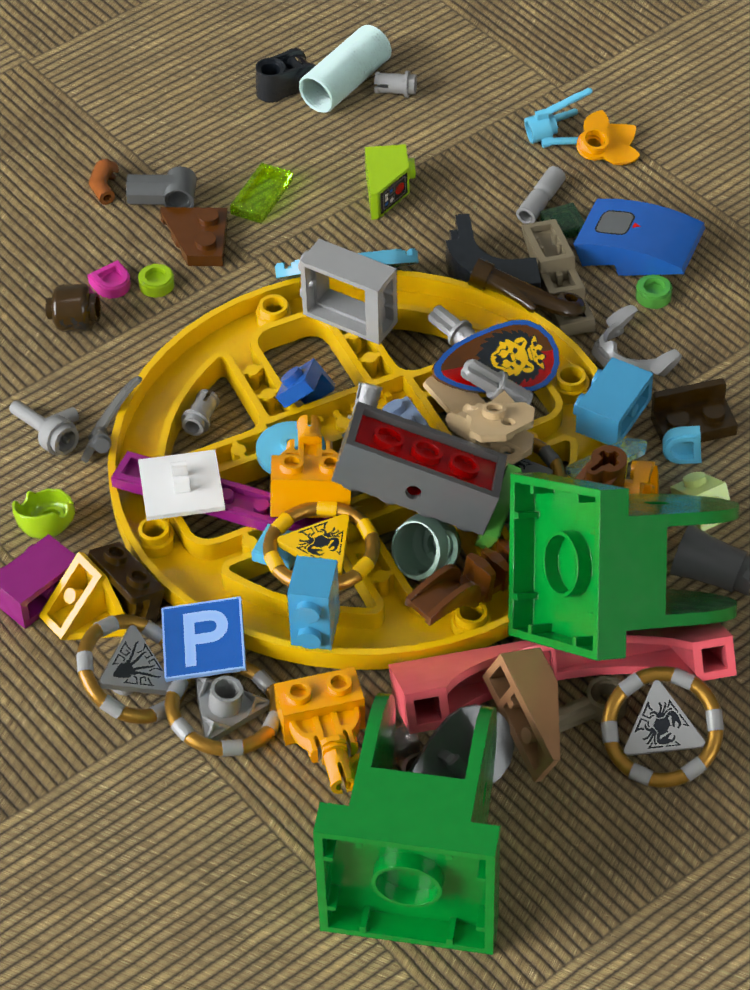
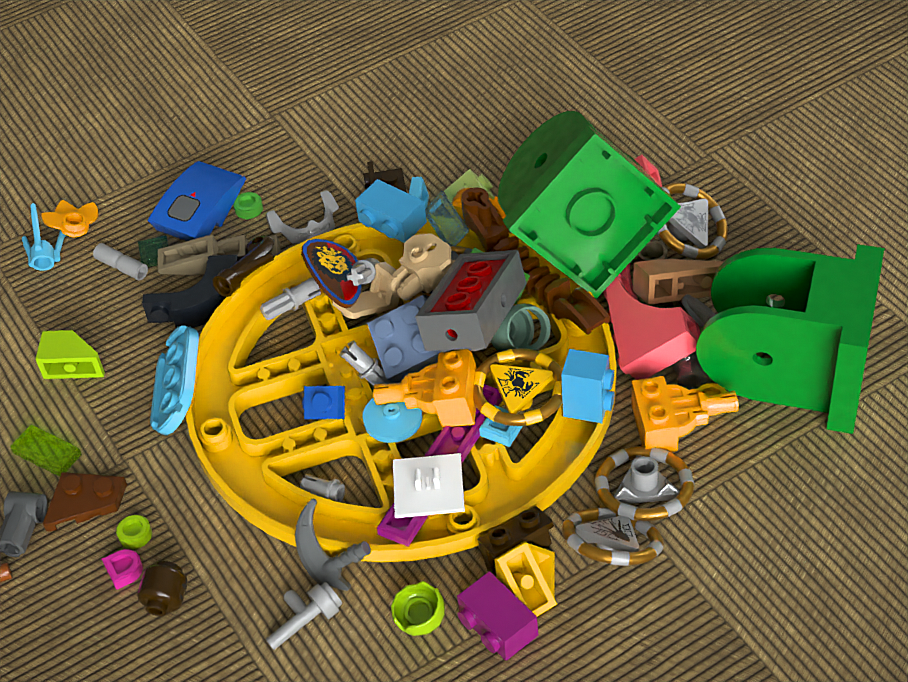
camera: 80 degrees left, 0 degrees up
(203, 639) = (589, 482): blue piece -> none
(366, 319) = (246, 326): light grey window -> none

